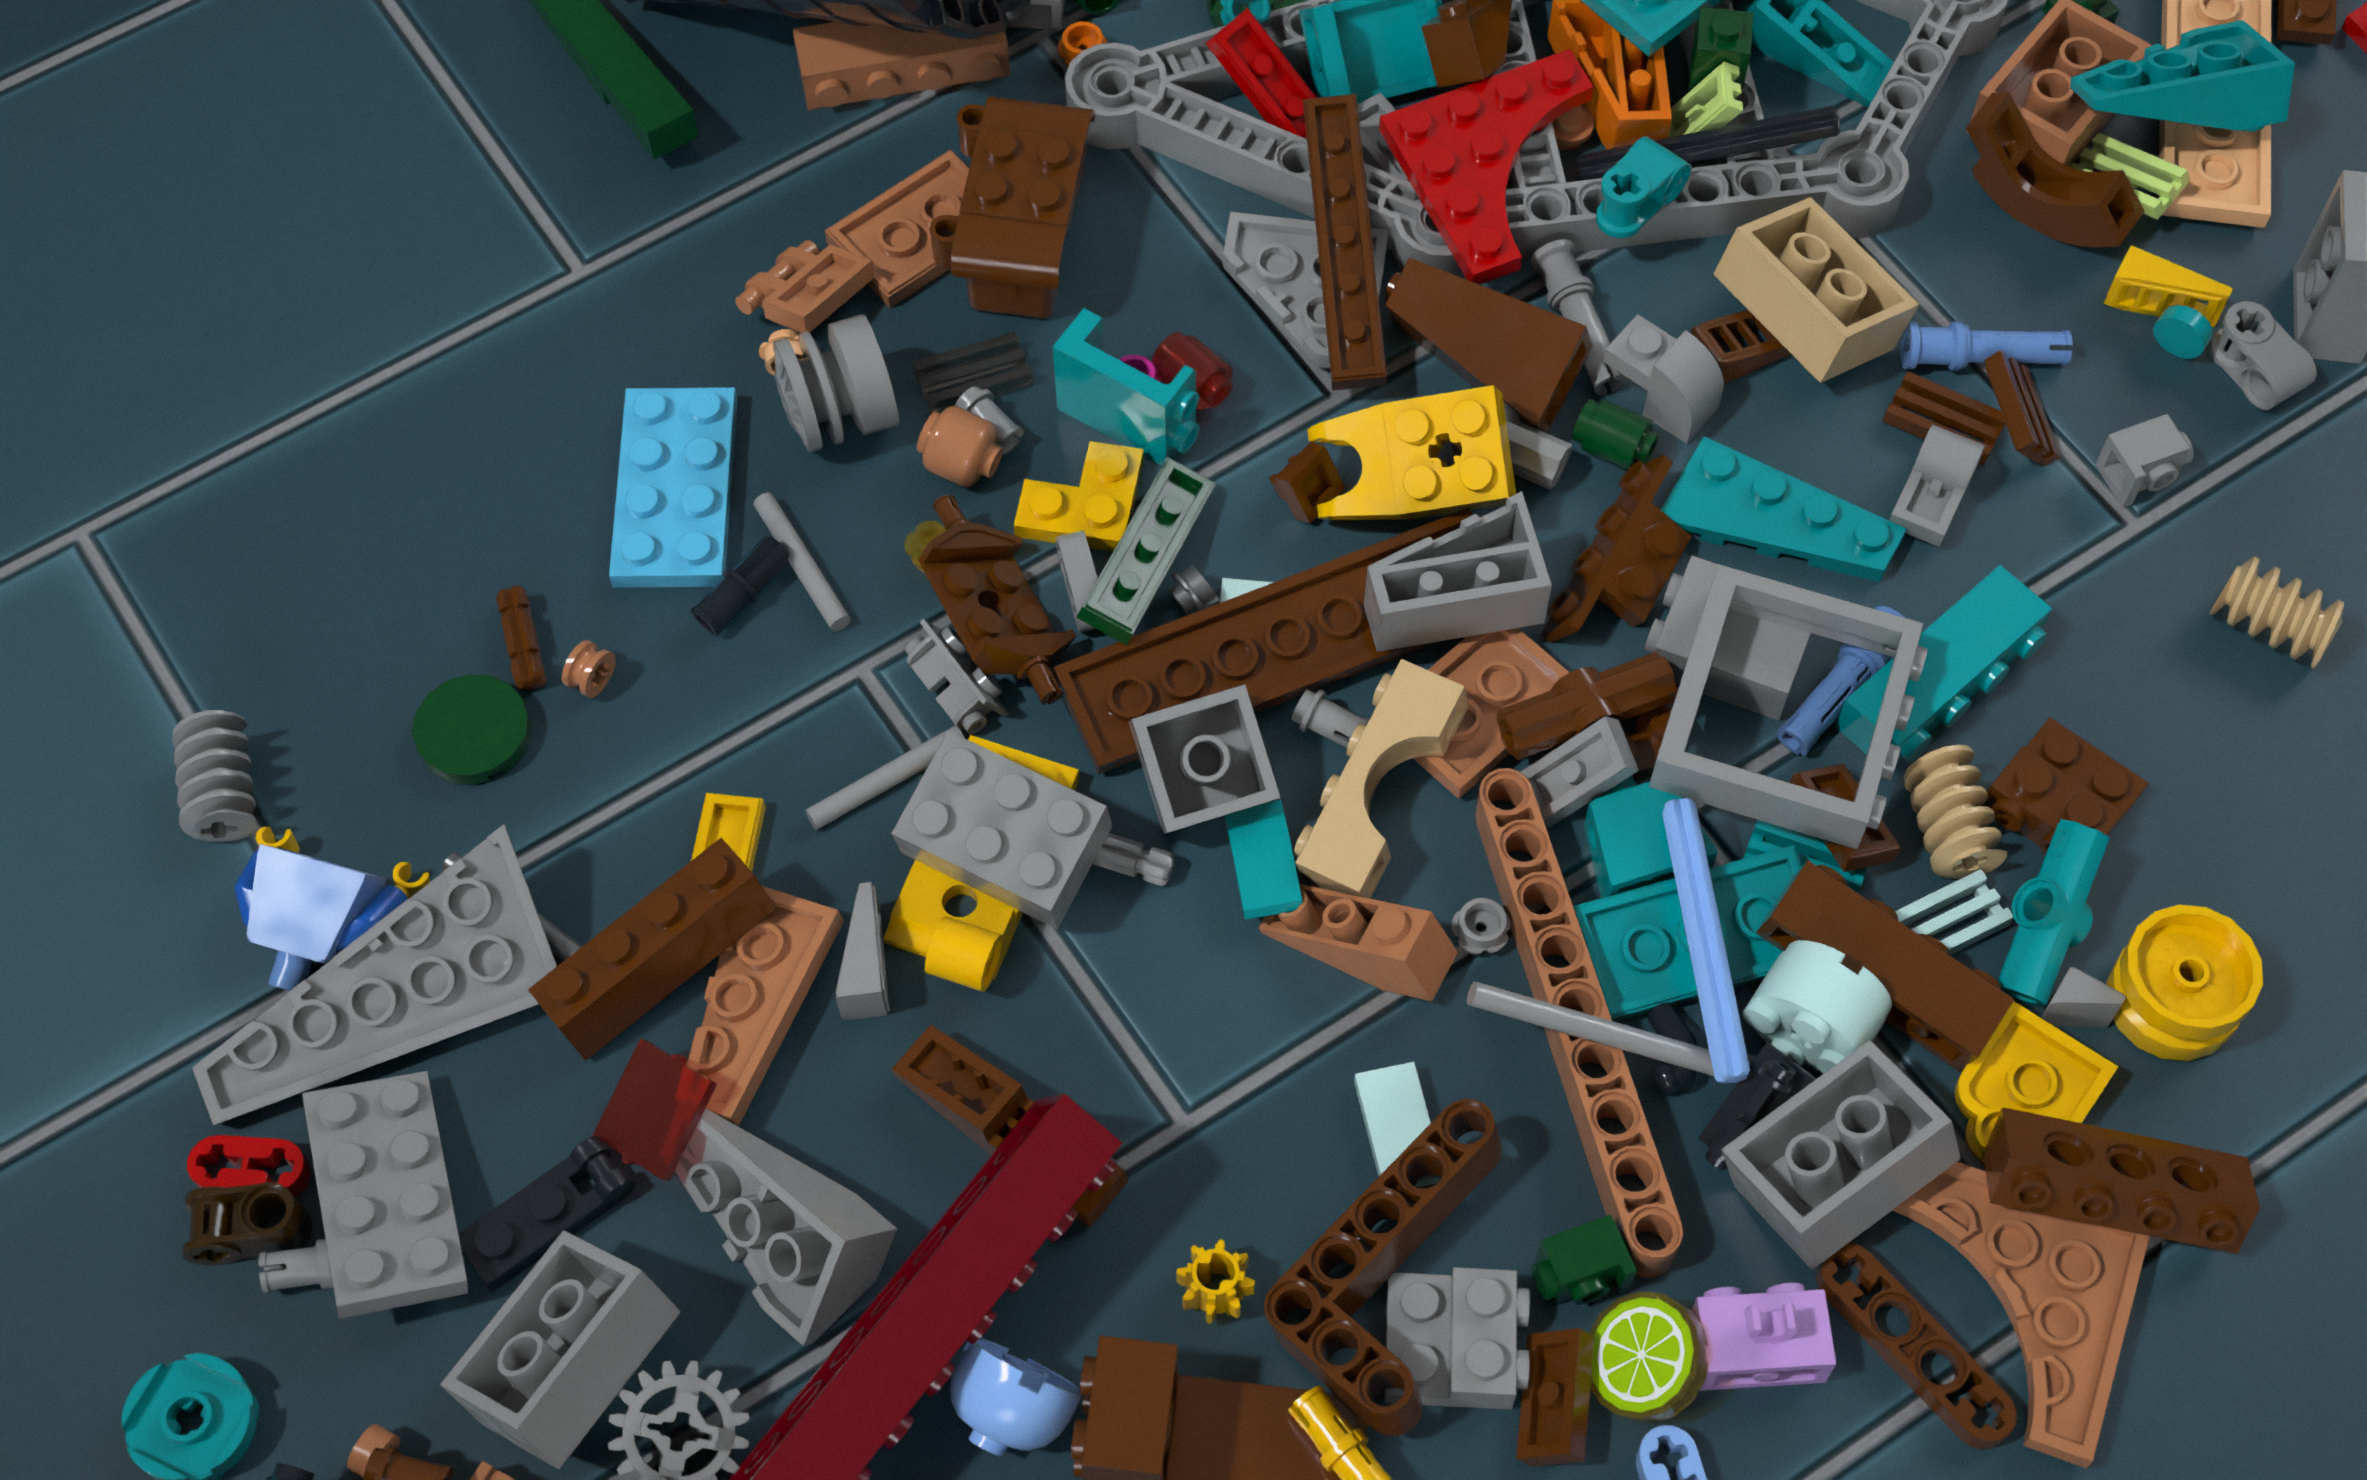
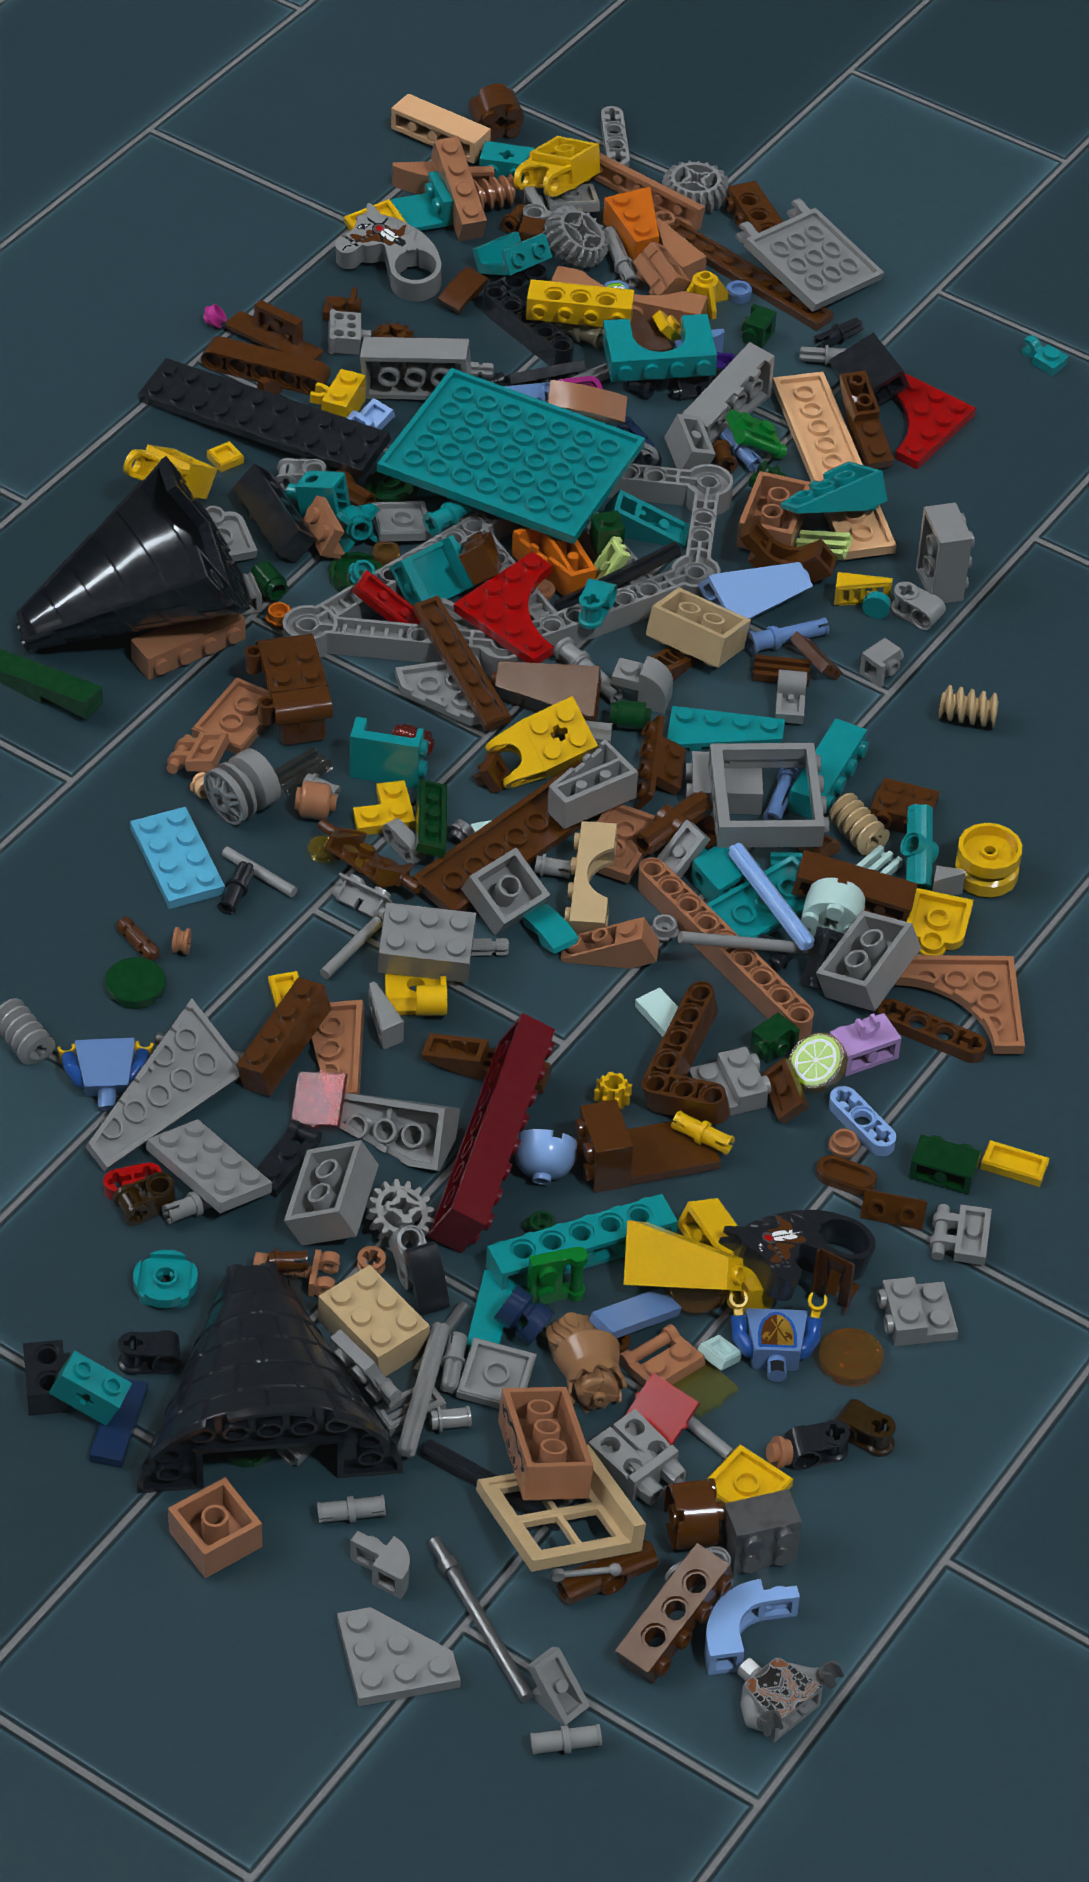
camera: 25 degrees left, 15 degrees down
(1958, 242) = (756, 589): none -> light blue slope
(2120, 1180) = (992, 939): reddish brown brick -> none

